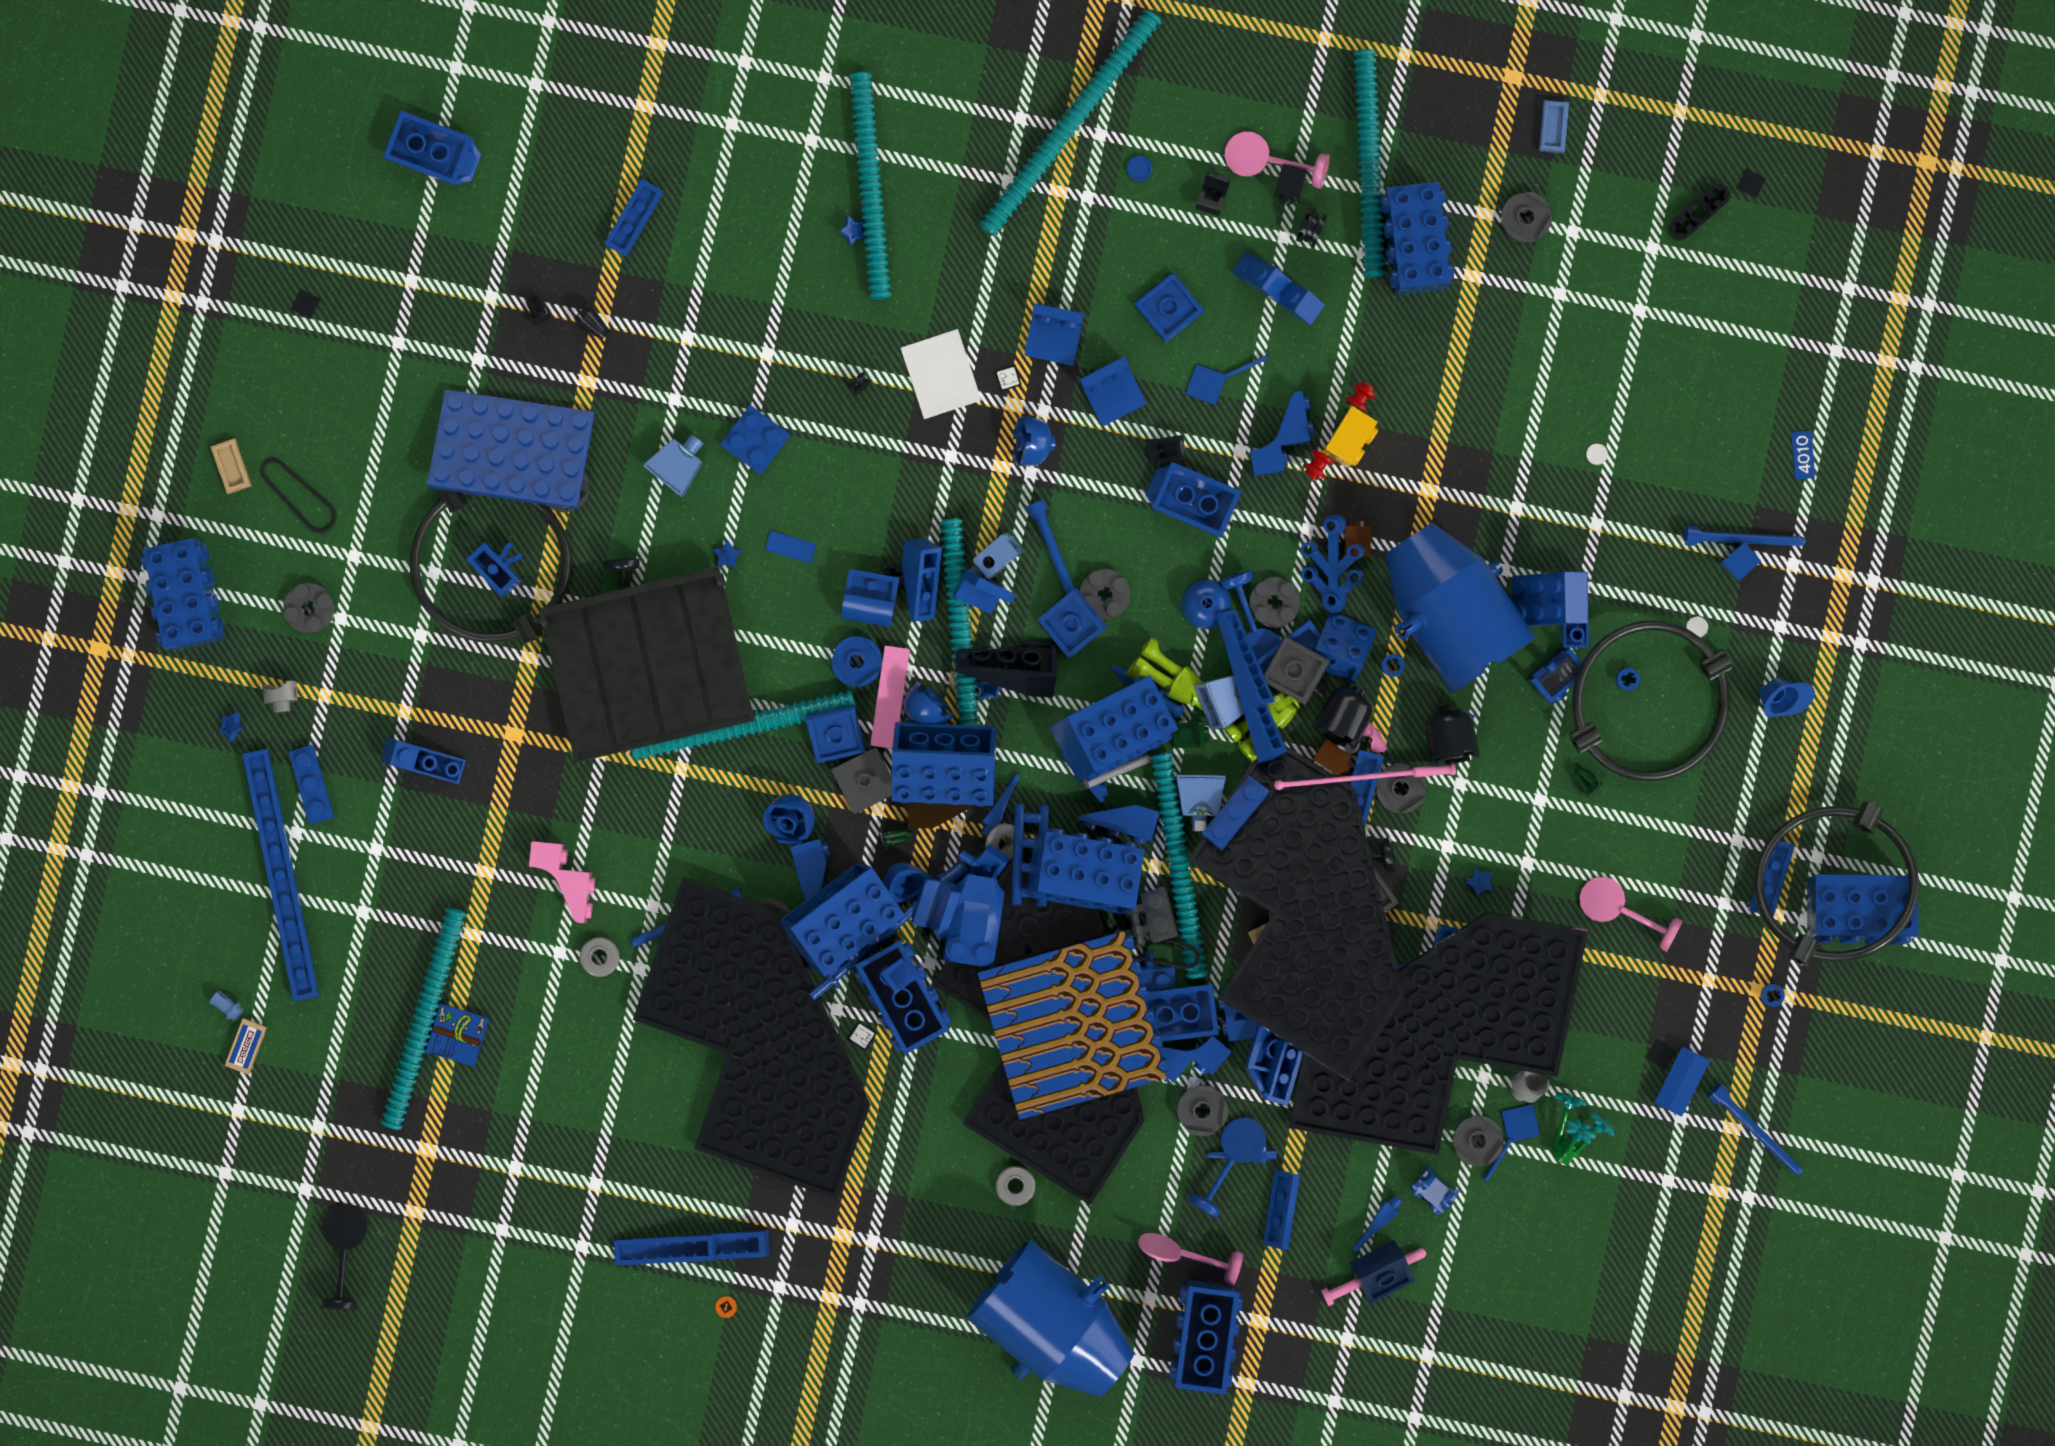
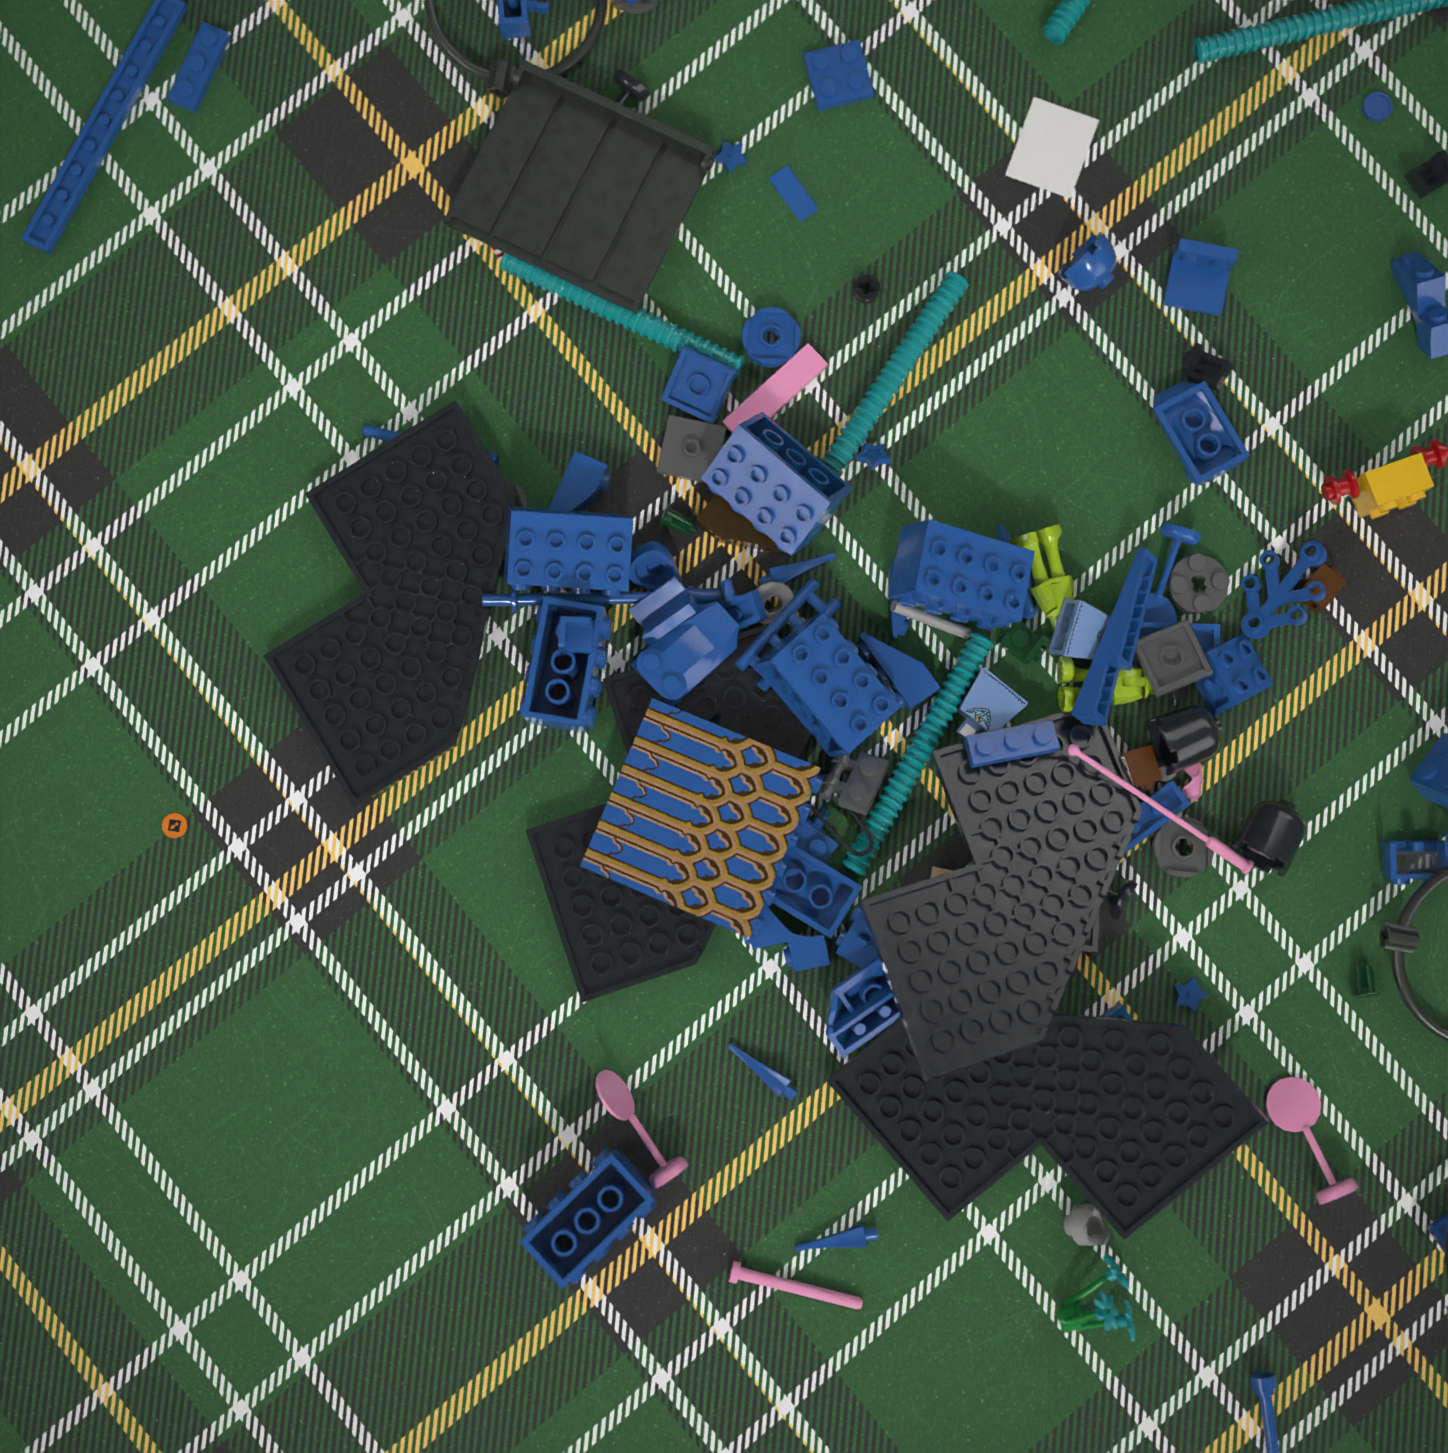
camera: 45 degrees right, 5 degrees down
(422, 760) = (313, 121): blue slope -> none
(423, 1018) = (121, 346): teal piece -> none
(457, 1035) = (140, 386): blue tile -> none
(573, 884) = (353, 334): bright pink arch -> none
(601, 944) = (314, 407): light grey piece -> none
(676, 464) = (750, 39): medium blue torso -> none
(692, 1247) = (188, 746): blue slope -> none
(789, 819) = (595, 425): blue cylinder -> none
(860, 383) = (973, 96): black bush -> none
(862, 1036) = (501, 678): sticker -> none
(870, 598) = (828, 288): blue brick -> none
(921, 576) = (889, 307): blue slope -> none
(925, 706) = (801, 421): blue cylinder -> none
(981, 592) = (935, 360): blue panel -> none
(1002, 550) = (982, 340): medium blue torso -> none
(1008, 378) = (1110, 197): sticker -> none
(1019, 668) = (916, 460): black wedge -> none
(1021, 1197) = (513, 923): light grey piece -> none
(1038, 512) = (1044, 332): blue piece -> none
(1053, 334) = (1187, 186): blue bracket -> none
(1053, 1323) = (455, 1086): blue piece -> none
(1072, 623) = (996, 454): blue plate -> none
(1118, 586) = (1051, 439): dark grey plate -> none
(1169, 307) = (1308, 247): blue tile -> none
(1193, 1098) = (757, 1016): dark grey plate -> none
(1196, 612) = (1121, 530): blue cylinder -> none
(1207, 383) = (1290, 342): blue piece -> none
(1242, 1142) = (771, 1058): blue piece -> none
(1281, 1209) = (757, 1153): blue plate -> none
(1293, 431) = (1338, 444): blue arch -> none
(1382, 1271) = (807, 1290): dark blue bracket -> none
(1400, 663) = (1272, 732): blue bush -> none
(1434, 1191) = (917, 1253): blue piece -> none
(1453, 606) = (1374, 712): blue piece -> none
(1475, 1126) = (1010, 1248): dark grey plate -> none
(1519, 1125) = (1046, 1255): blue piece -> none
(1661, 1054) = (1235, 1298): black sticker -> none
(1682, 1081) = (1237, 1341): blue piece -> none
(1773, 1003) = (1397, 1334): blue bush -> none

